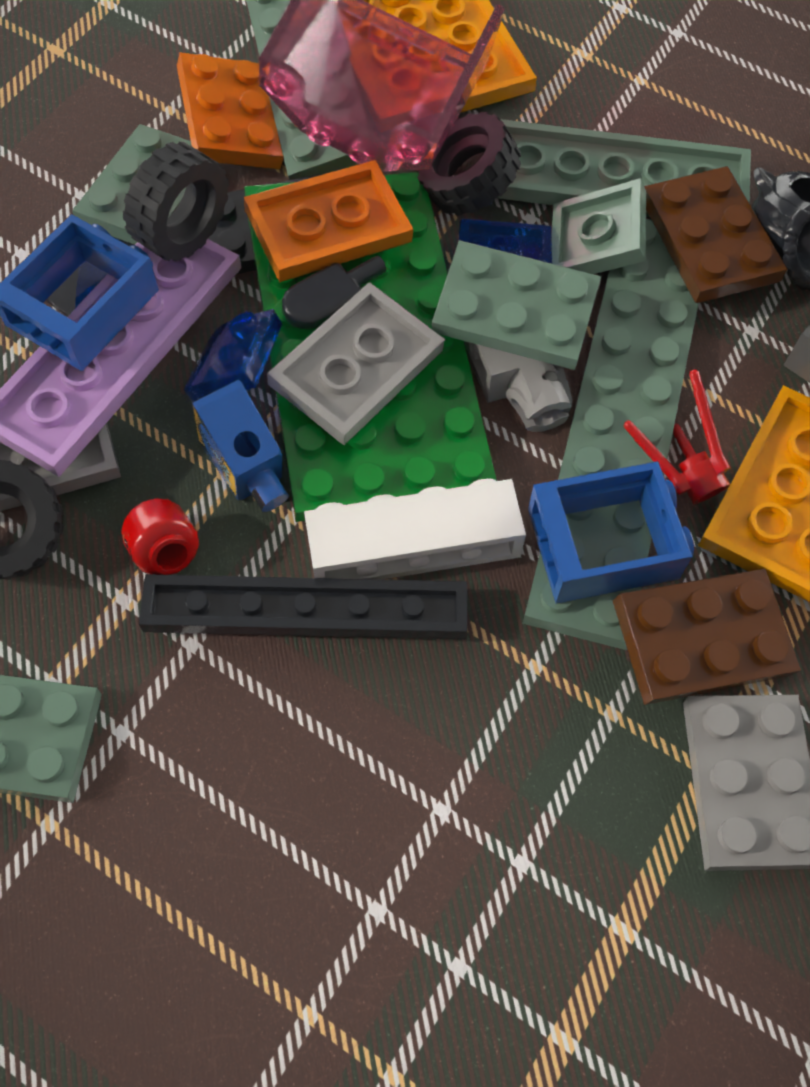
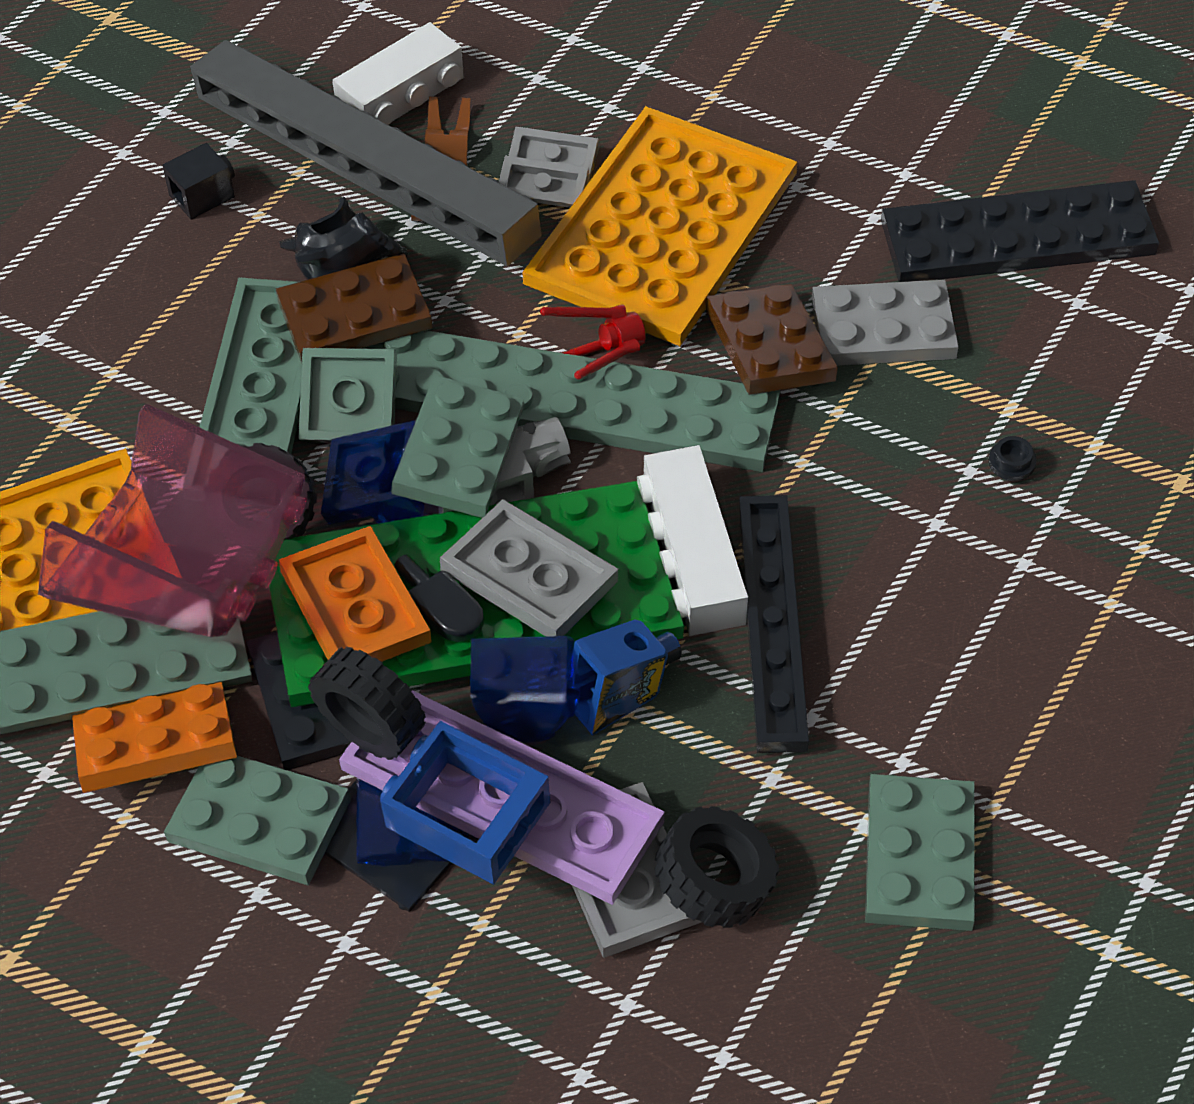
camera: 90 degrees left, 10 degrees down
(160, 537) = (717, 736): red head -> none
(528, 914) = (1012, 458): none -> black plate
(602, 489) = (701, 420): blue window -> none

